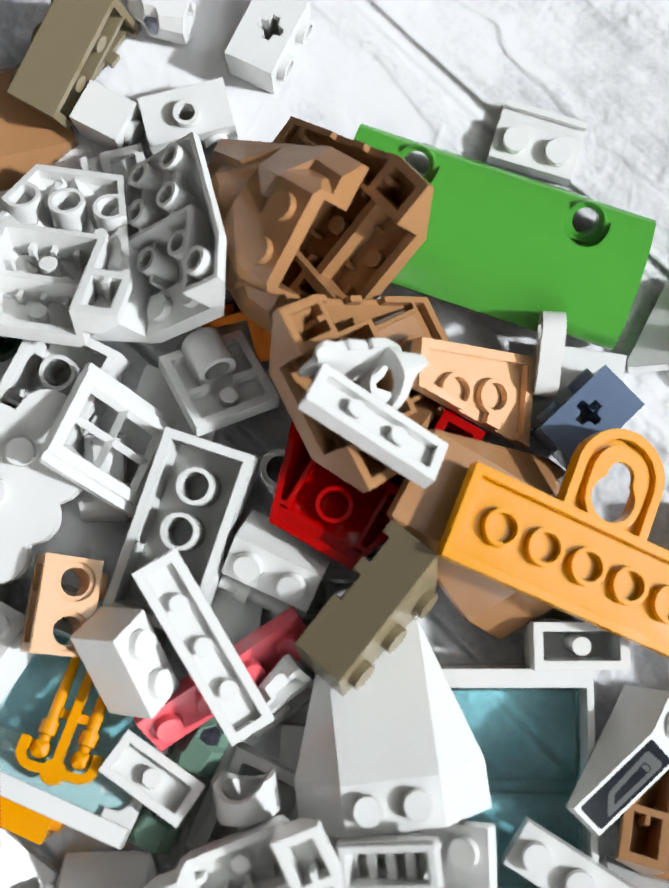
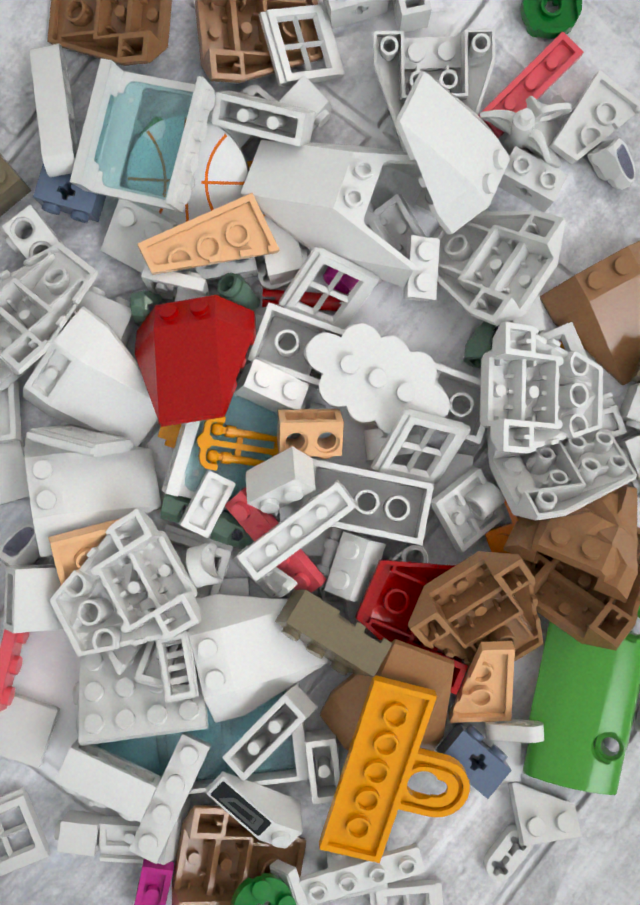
camera: 75 degrees right, 5 degrees up
(367, 363) = (493, 614): white hair -> none
(374, 426) = (451, 627): white plate -> none
(512, 725) = (269, 732): none -> white brick

